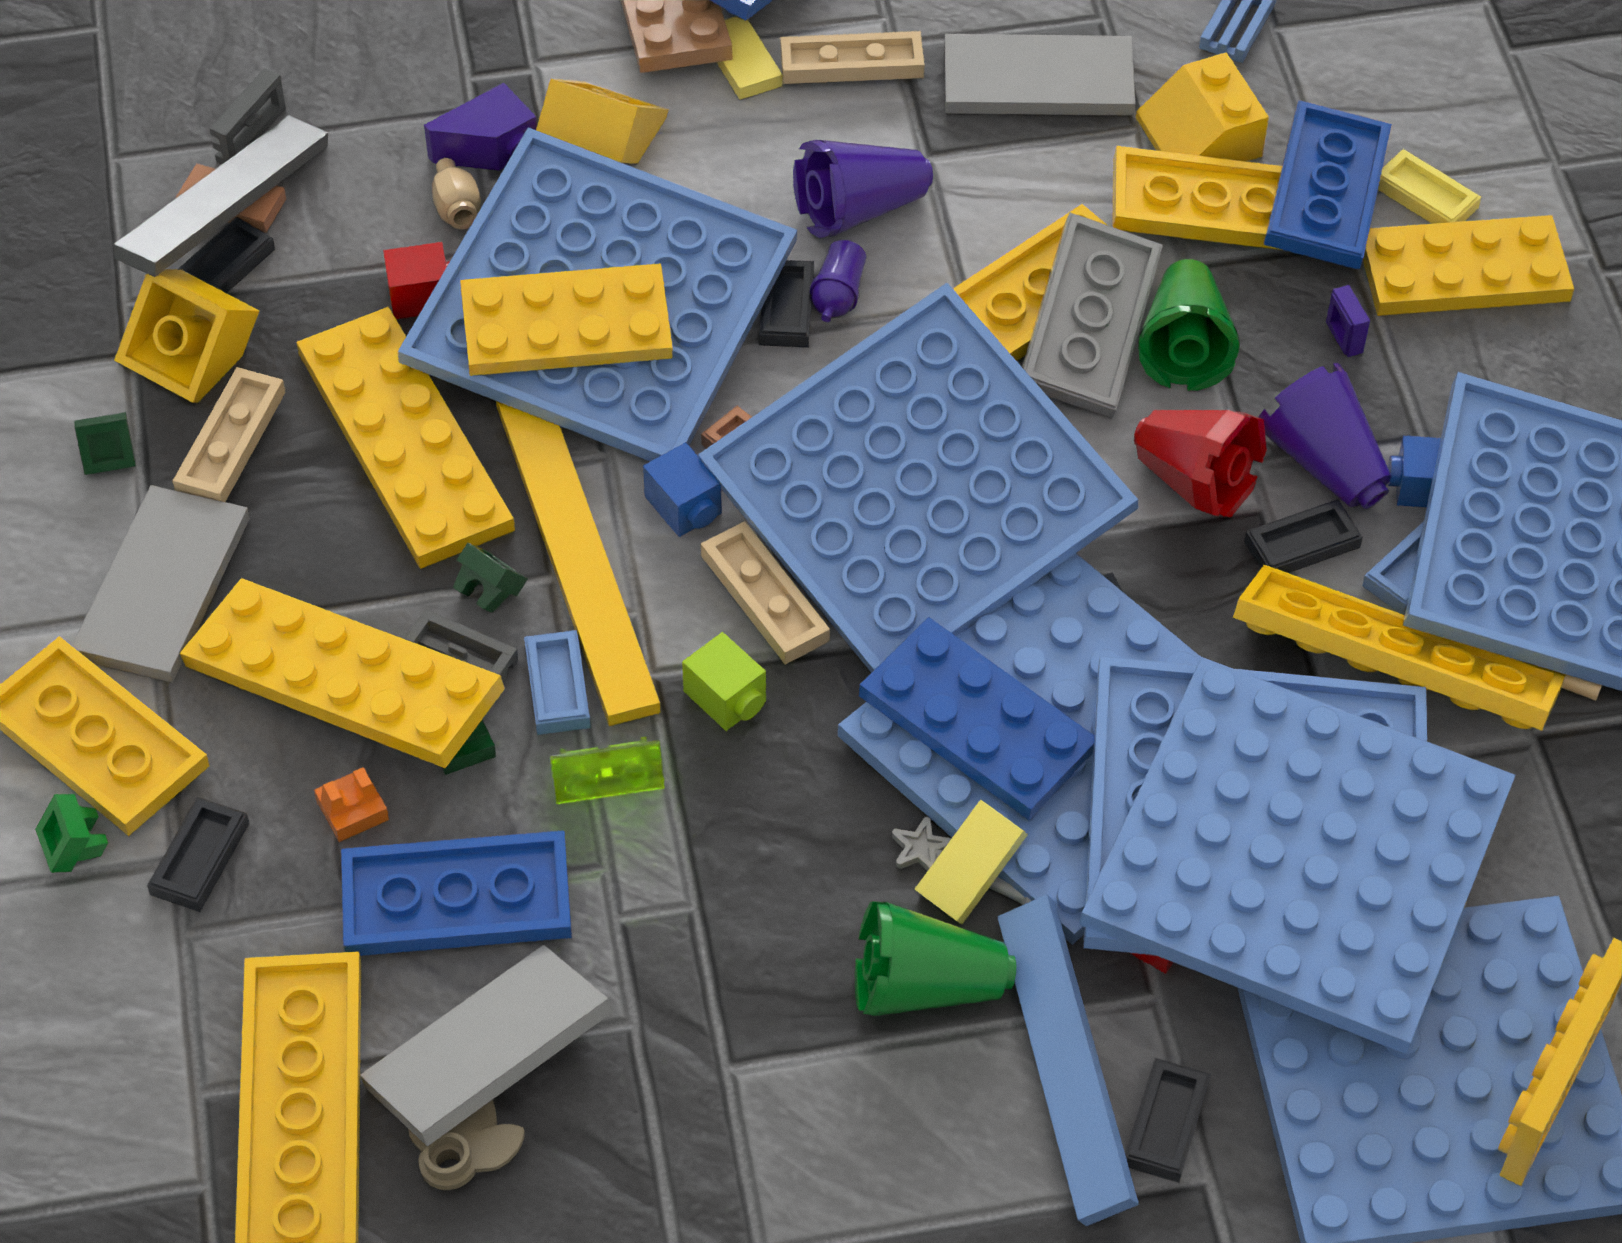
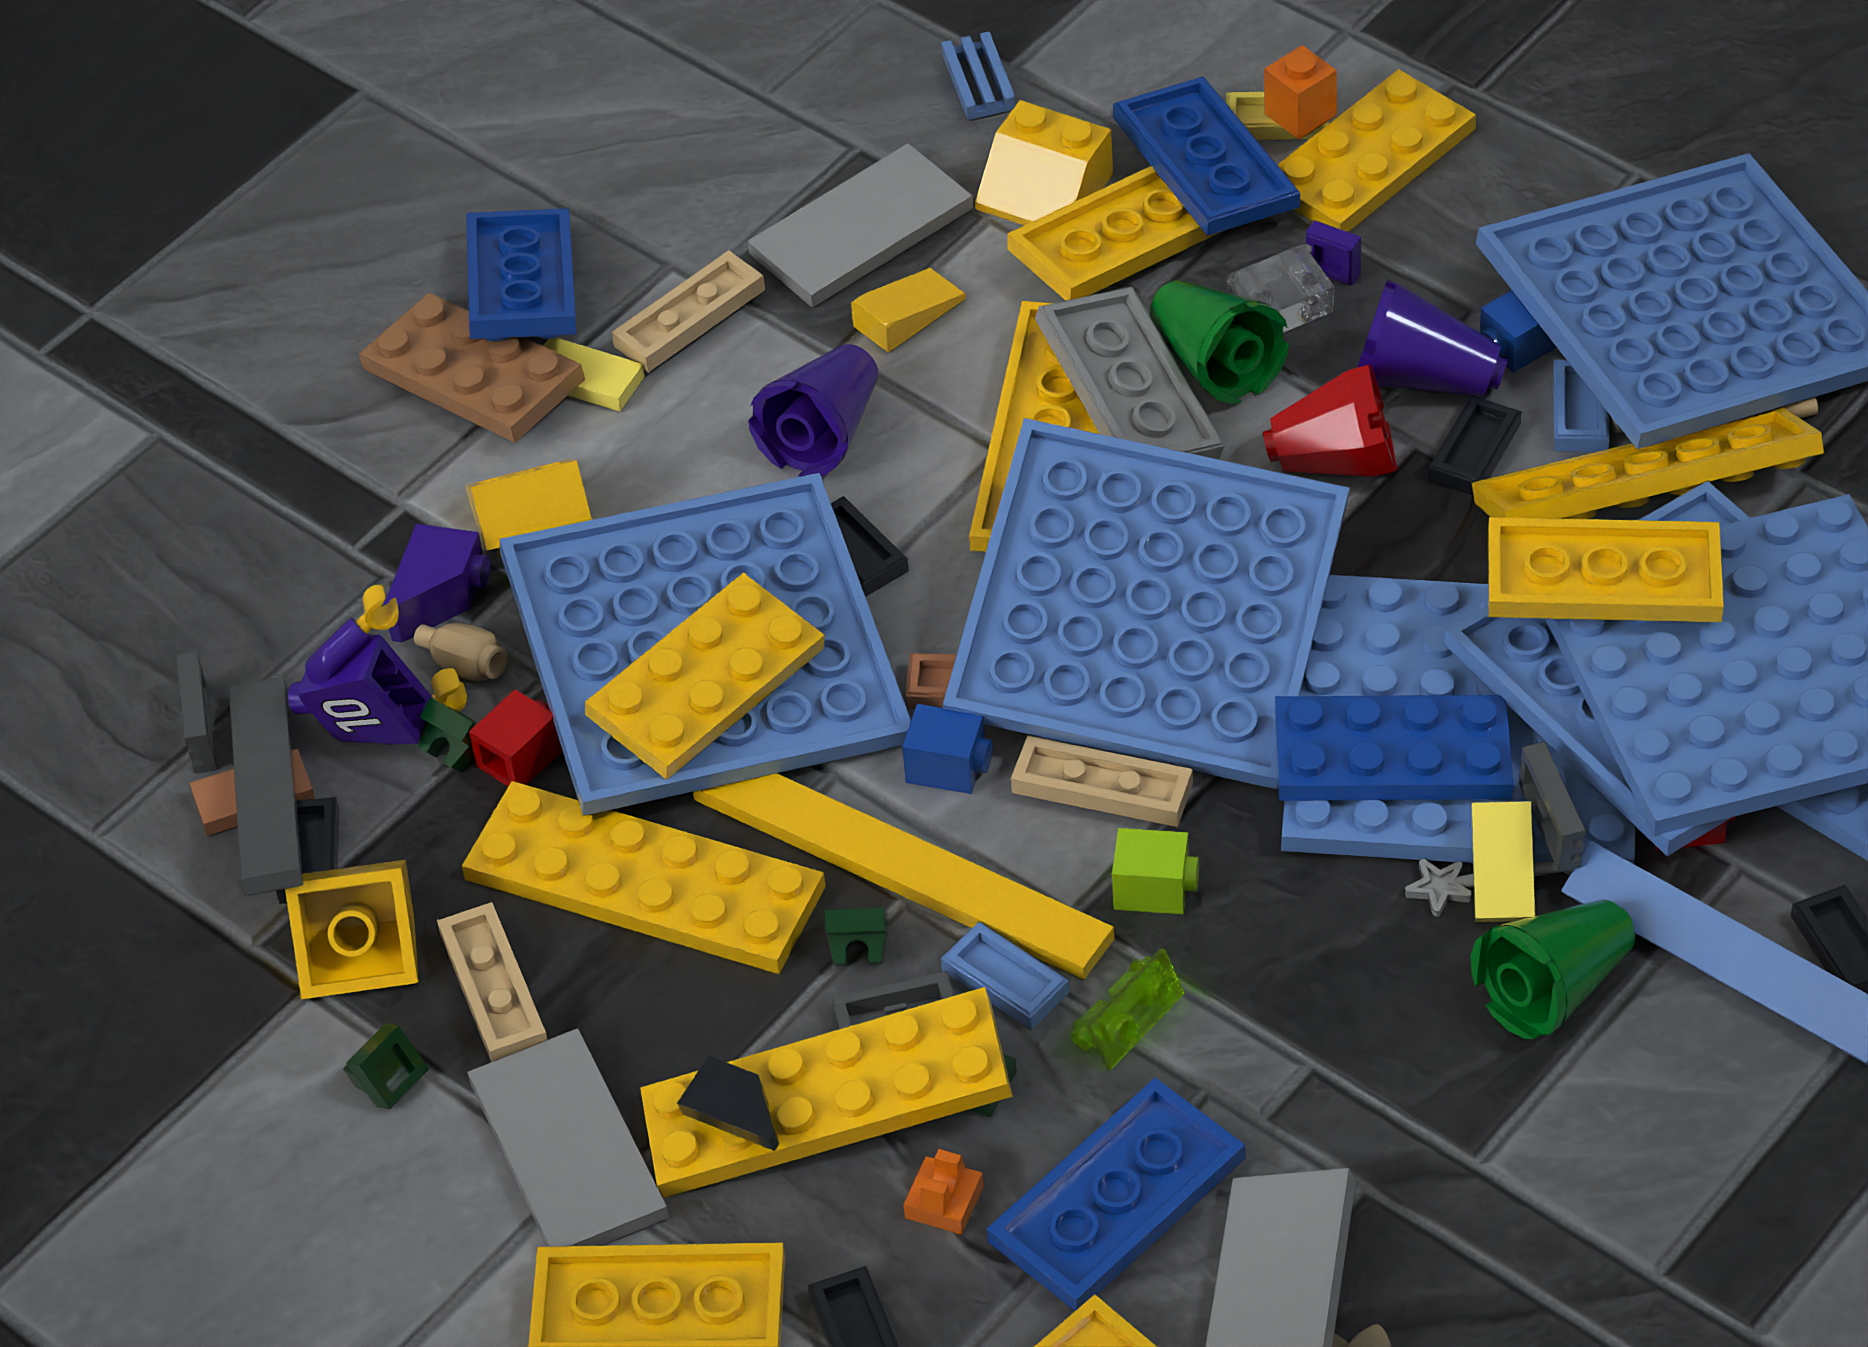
camera: 35 degrees left, 5 degrees down
(265, 629) = (731, 1102): none -> black tile
(348, 175) = (364, 687): none -> dark purple torso
(383, 235) = (445, 726): none -> dark green tile
(838, 281) = (883, 496): dark purple piece -> none
(1004, 154) = (904, 307): none -> yellow slope
(1036, 846) = (1551, 806): none -> dark grey tile
(1242, 694) = (1604, 569): none -> yellow plate
(1279, 317) = (1281, 285): none -> clear piece
(1444, 181) = (1300, 92): none -> orange brick

